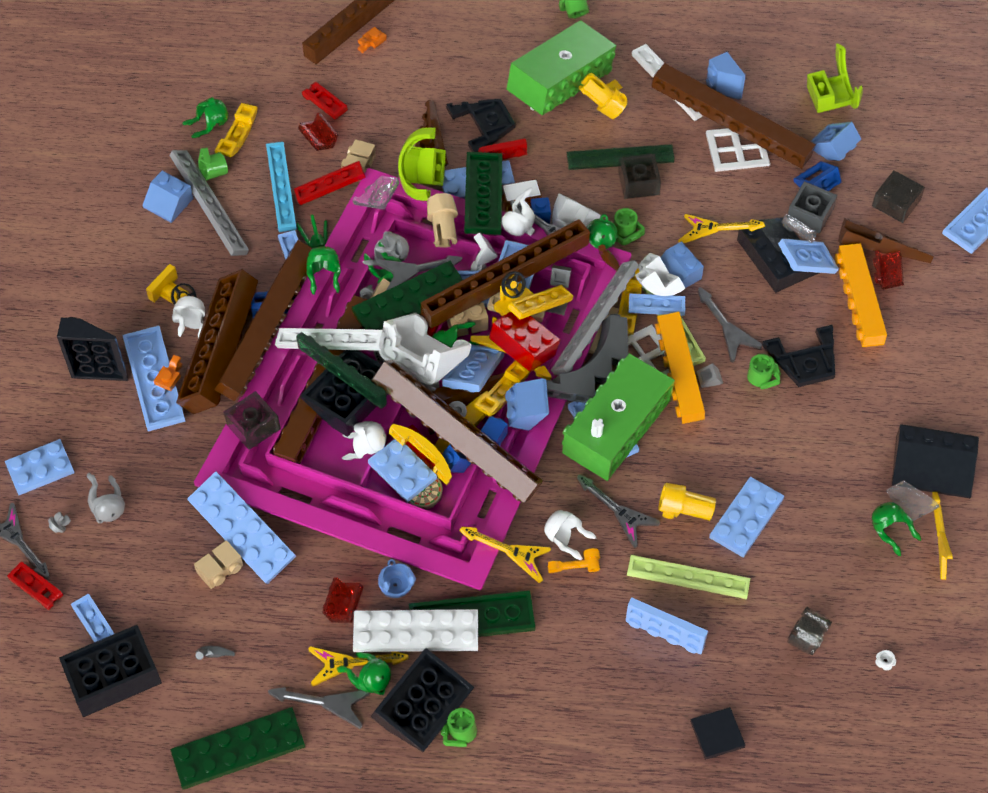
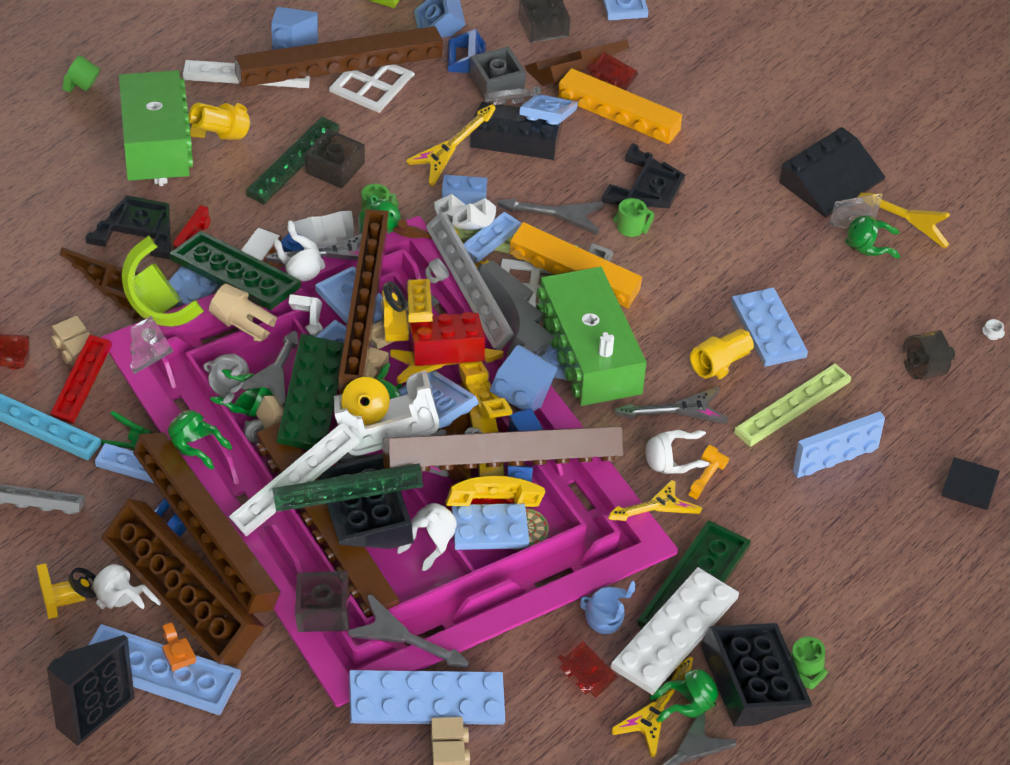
camera: 55 degrees left, 10 degrees down
(268, 471) = (390, 629): none -> flat silver piece
(427, 331) = (369, 388): none -> yellow dish
(560, 276) = (399, 272): dark grey tile -> none
(586, 295) = (438, 269): none -> light grey tile

